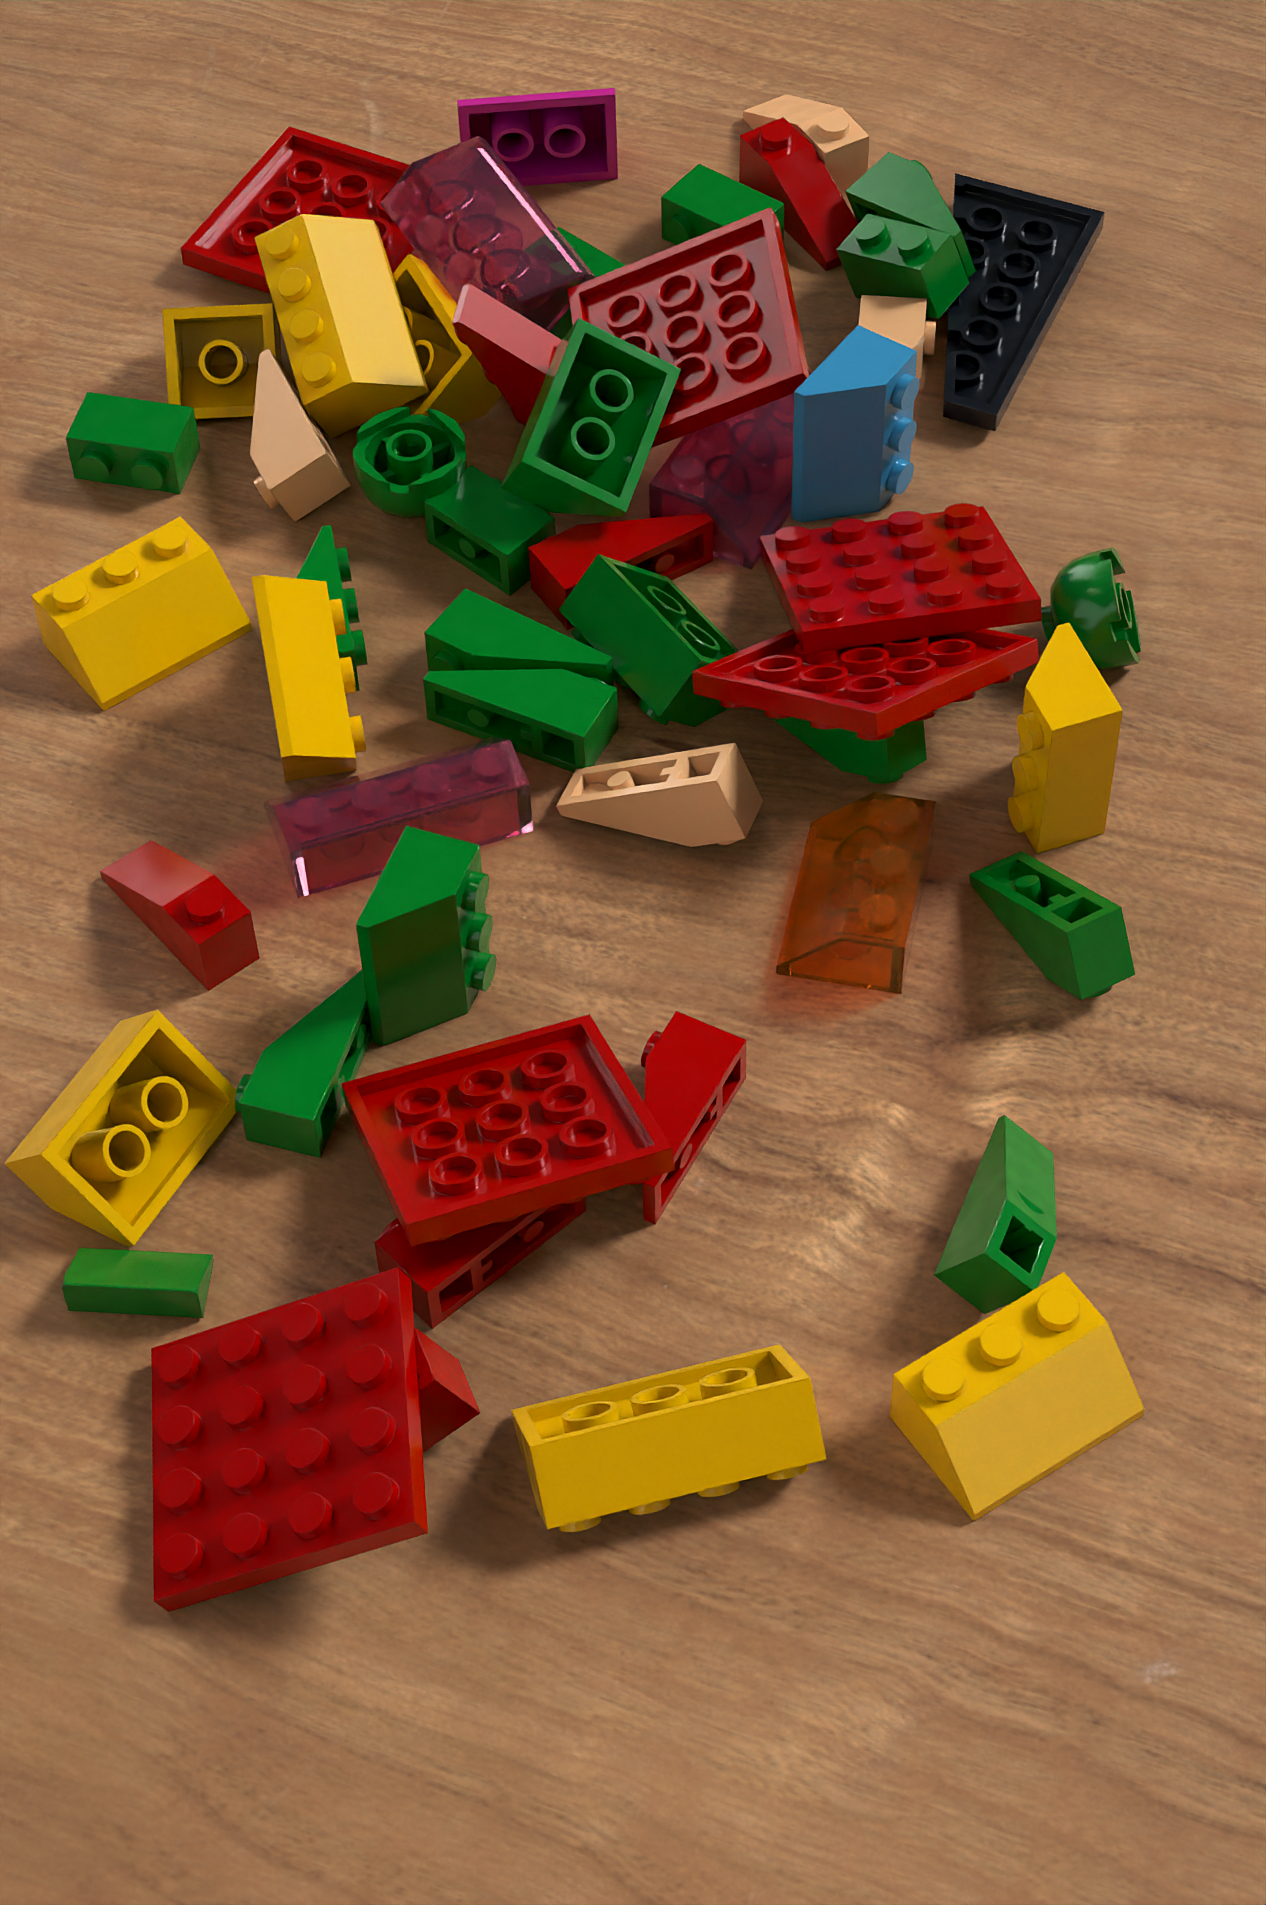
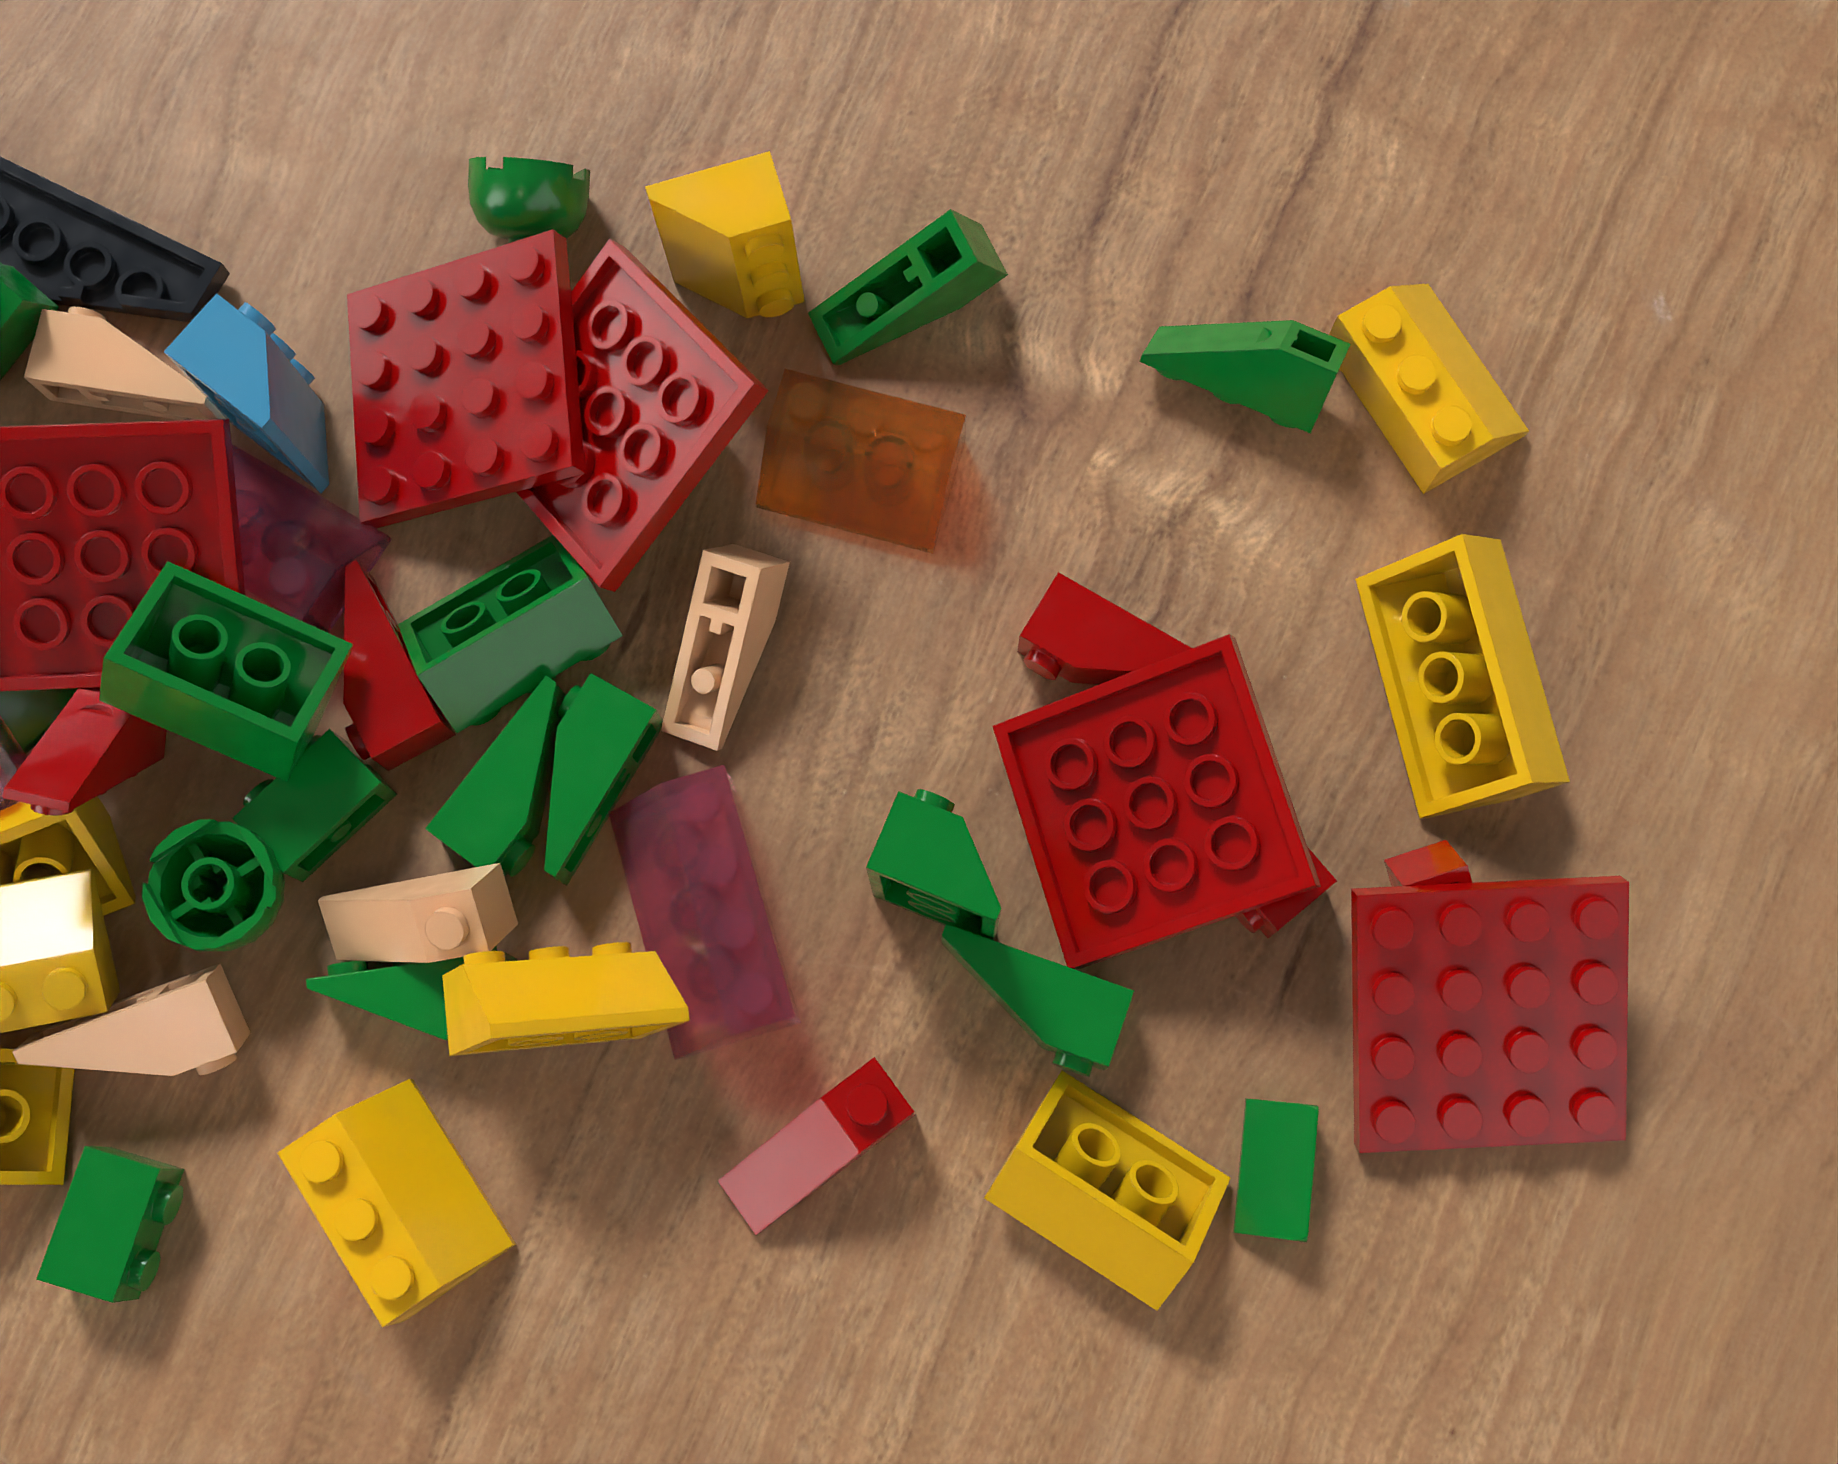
camera: 85 degrees left, 25 degrees up
(387, 603) = (421, 917): none -> light nougat slope

